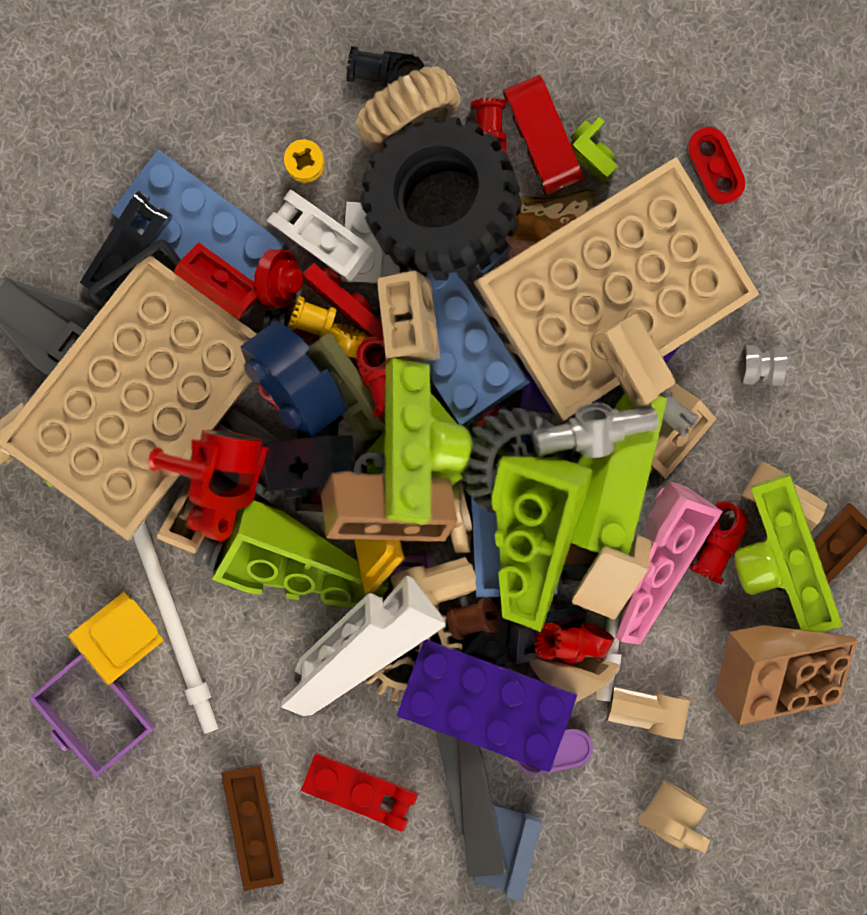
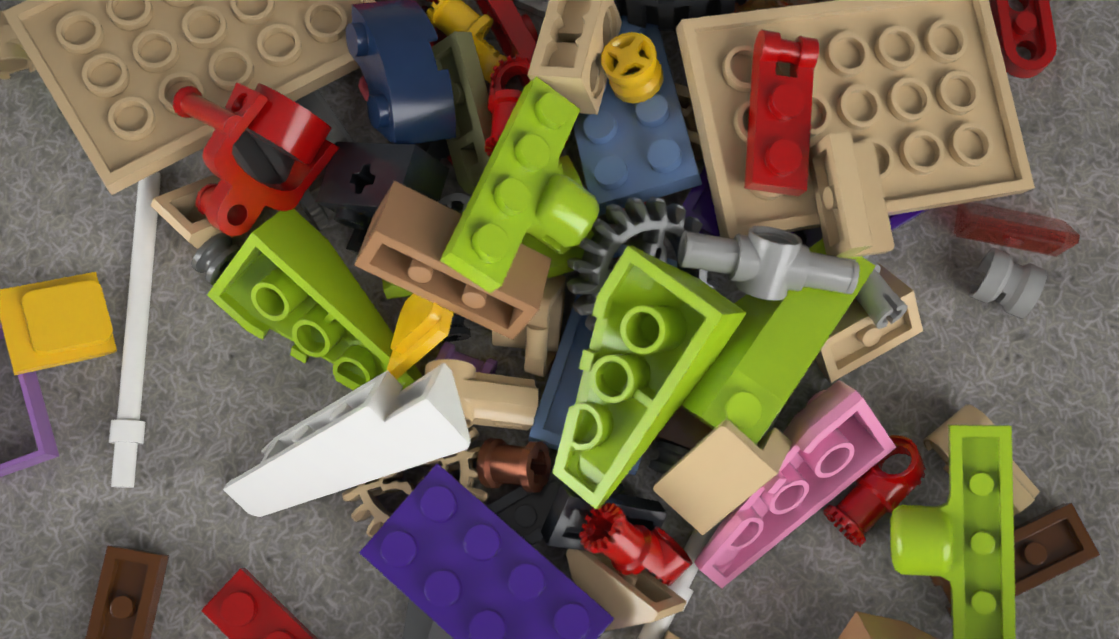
camera: 25 degrees right, 10 degrees down
(444, 314) = (629, 54): none -> yellow wheel
(567, 321) = (780, 114): none -> red plate
(757, 320) = (1014, 229): none -> clear red slope

